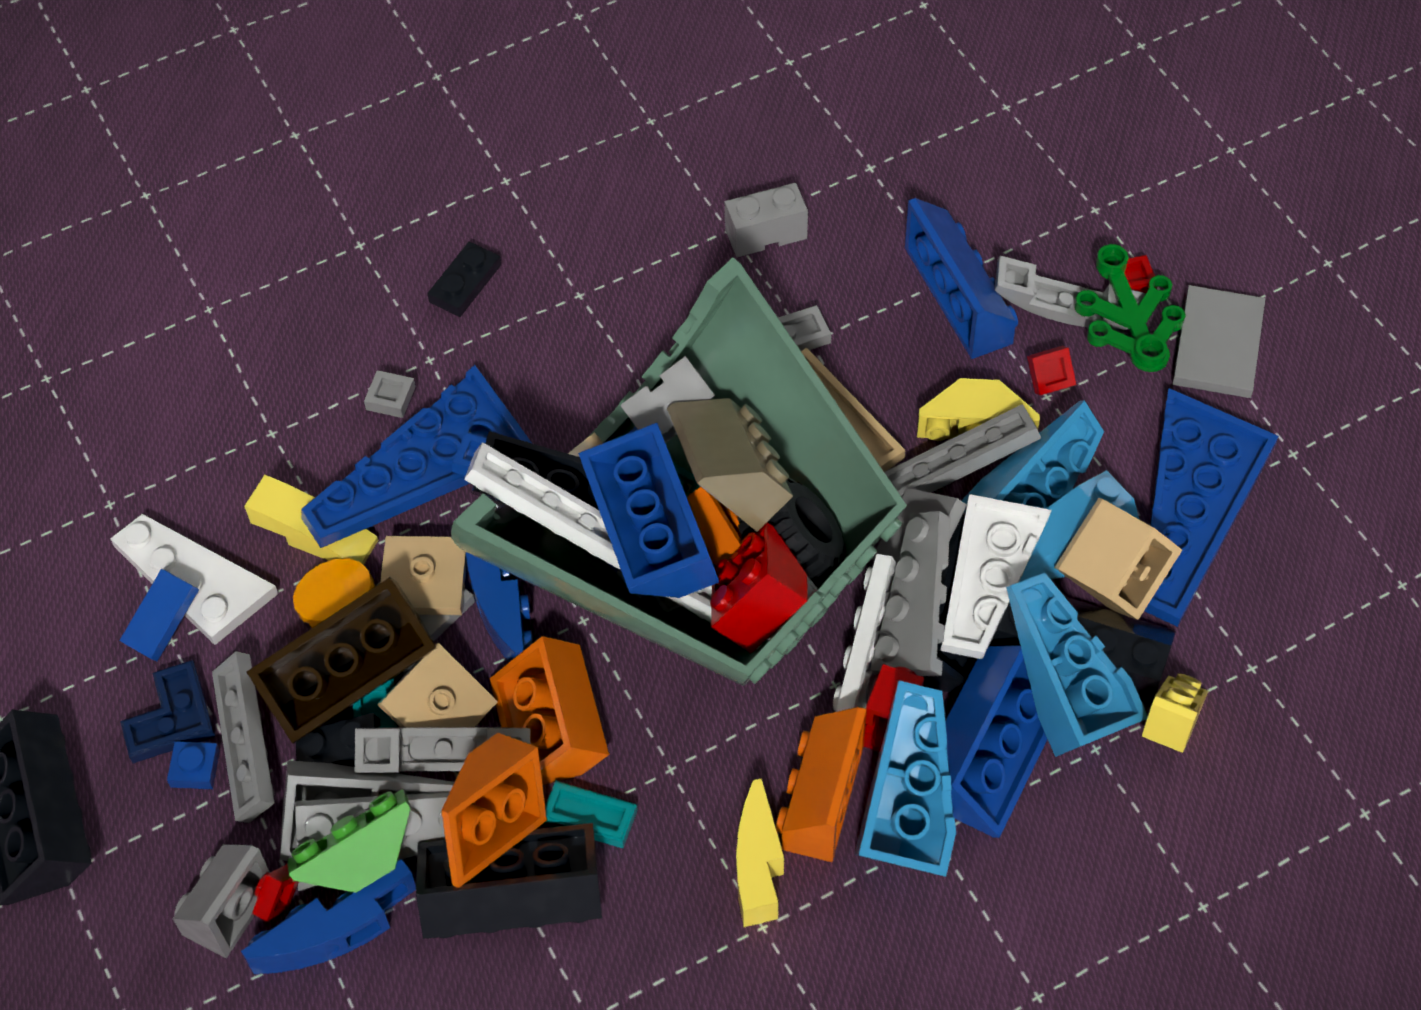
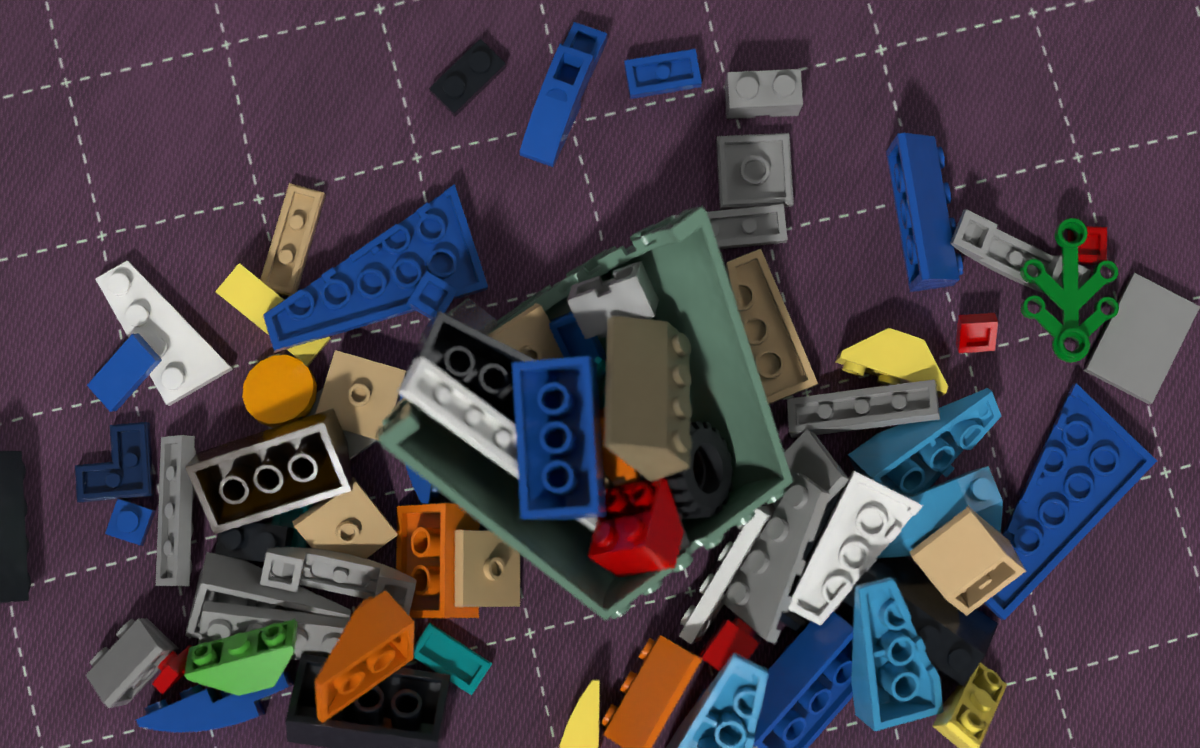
camera: 10 degrees right, 25 degrees up
(317, 449) = (292, 239): none -> tan tile
(389, 394) = (371, 192): light grey plate -> none
(563, 265) = (562, 94): none -> blue slope
(605, 702) = (485, 570): none -> tan plate
(660, 229) = (662, 73): none -> blue plate
(787, 283) = (754, 170): none -> light grey tile

